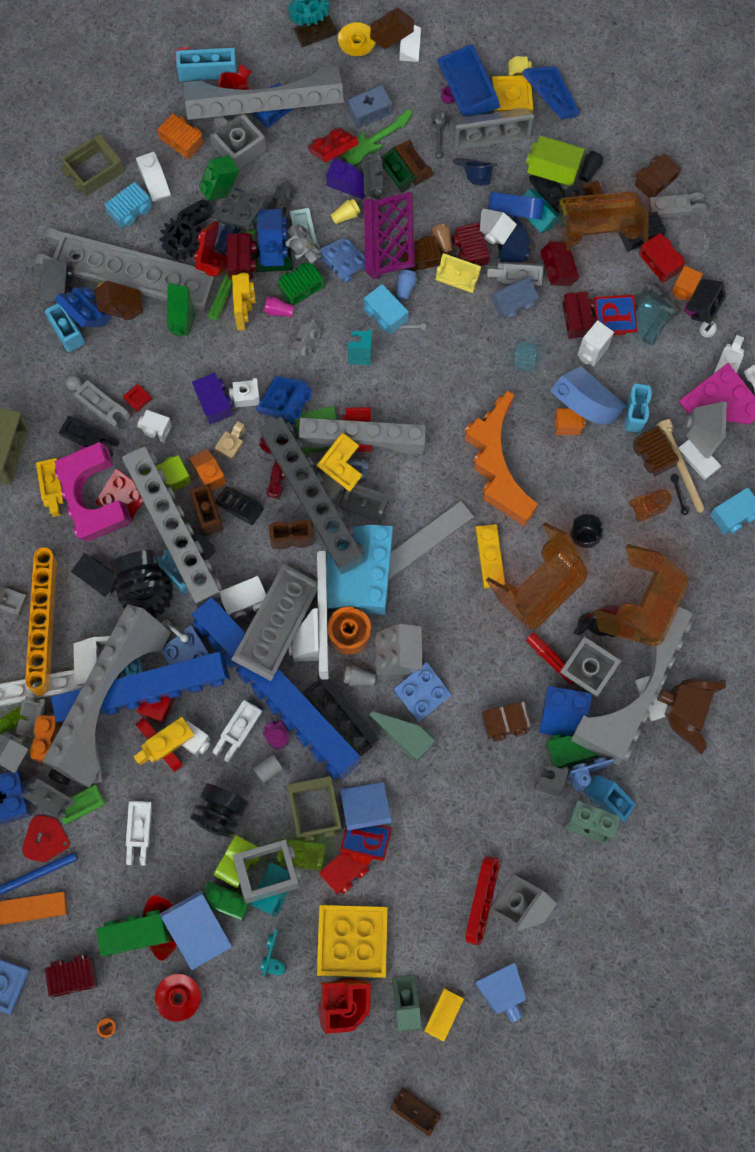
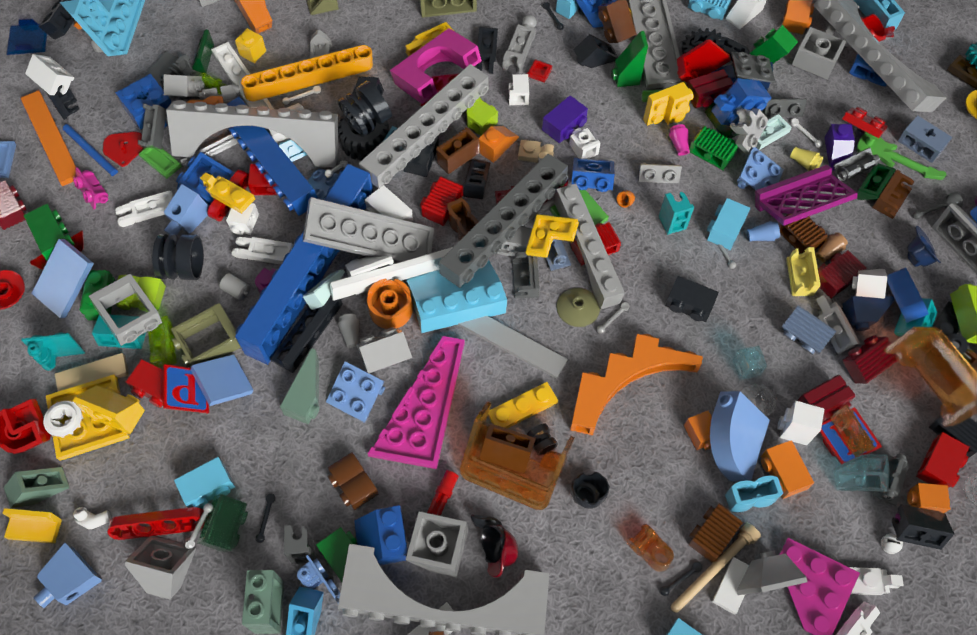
camera: 70 degrees right, 10 degrees down
(56, 358) = (546, 5): none -> black hinge
(60, 655) = (316, 89): none -> white hinge
(76, 887) = (85, 182): none -> dark pink hinge
(123, 766) = (197, 167): none -> blue plate
(143, 338) = (594, 52): none -> black slope
(159, 784) = (185, 211): none -> medium blue torso
(253, 545) = (436, 204): none -> red brick
(299, 201) = (795, 122): none -> white hinge
(307, 929) = (92, 371): none -> tan tile
(309, 684) = (321, 292): none -> light aqua slope
(321, 388) = (622, 196): none -> orange hinge
(341, 965) = (56, 413): none -> white gear
(362, 909) = (110, 407): none -> yellow slope
(412, 480) = (578, 315): none -> olive dish
(428, 433) = (624, 307): none -> light grey hinge
(447, 374) = (691, 299): none -> black brick
(454, 962) = (89, 519): none -> white arm
(461, 848) = (204, 483): none -> medium azure brick
(471, 646) = (422, 416): none -> dark pink wing
(493, 798) = (270, 498): none -> black hinge
(505, 842) = (223, 523): none -> clear green brick
(509, 875) = (190, 543): none -> light grey hinge
(527, 551) = (543, 441): none -> black wheel
(530, 580) = (507, 448): none -> reddish brown brick
(616, 309) = (851, 431): none -> clear orange hinge
(624, 373) = (789, 467): none -> orange brick
(653, 616) = (535, 585): clear orange windscreen -> none

